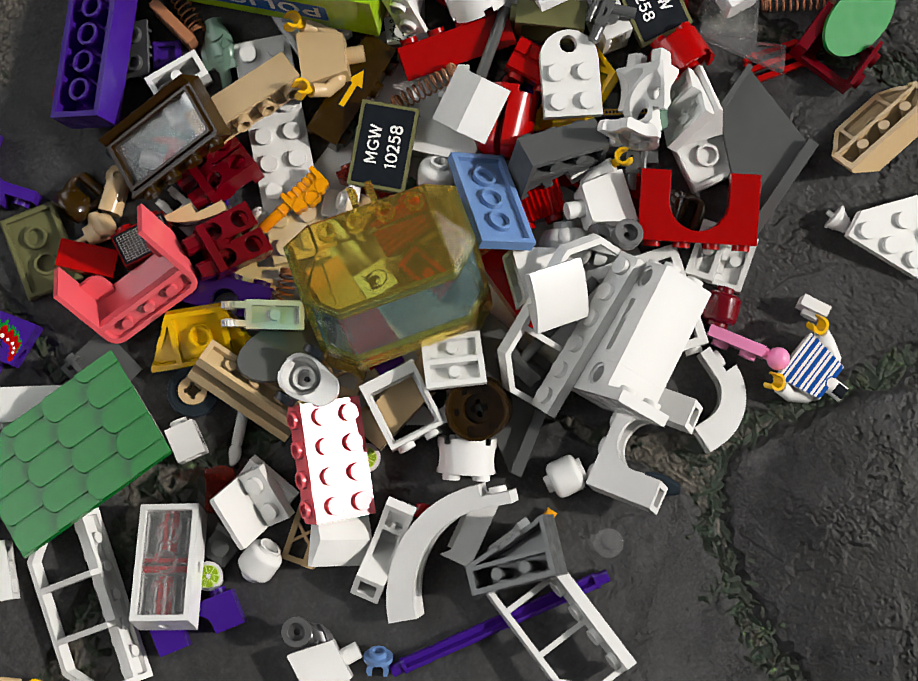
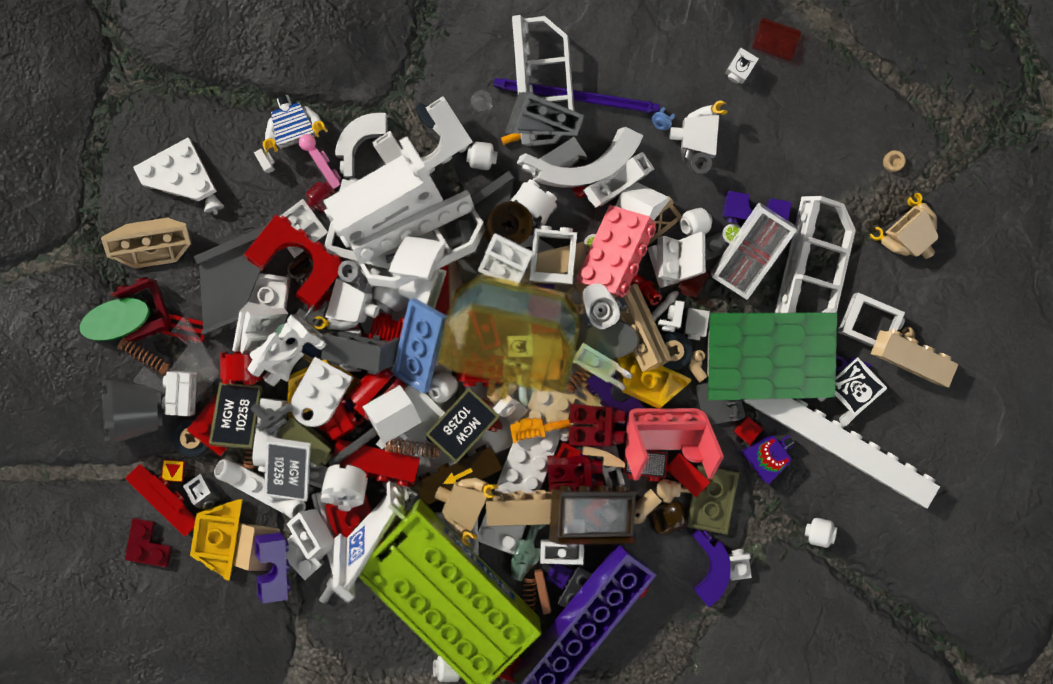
camera: 145 degrees left, 5 degrees up
(48, 356) = (748, 430): none -> red tile
(157, 393) = (695, 365): none -> tan arm
(214, 430) = (675, 314): none -> white bracket
(246, 193) = (567, 451): none -> red tile
(268, 444) = (647, 289): none -> red piece

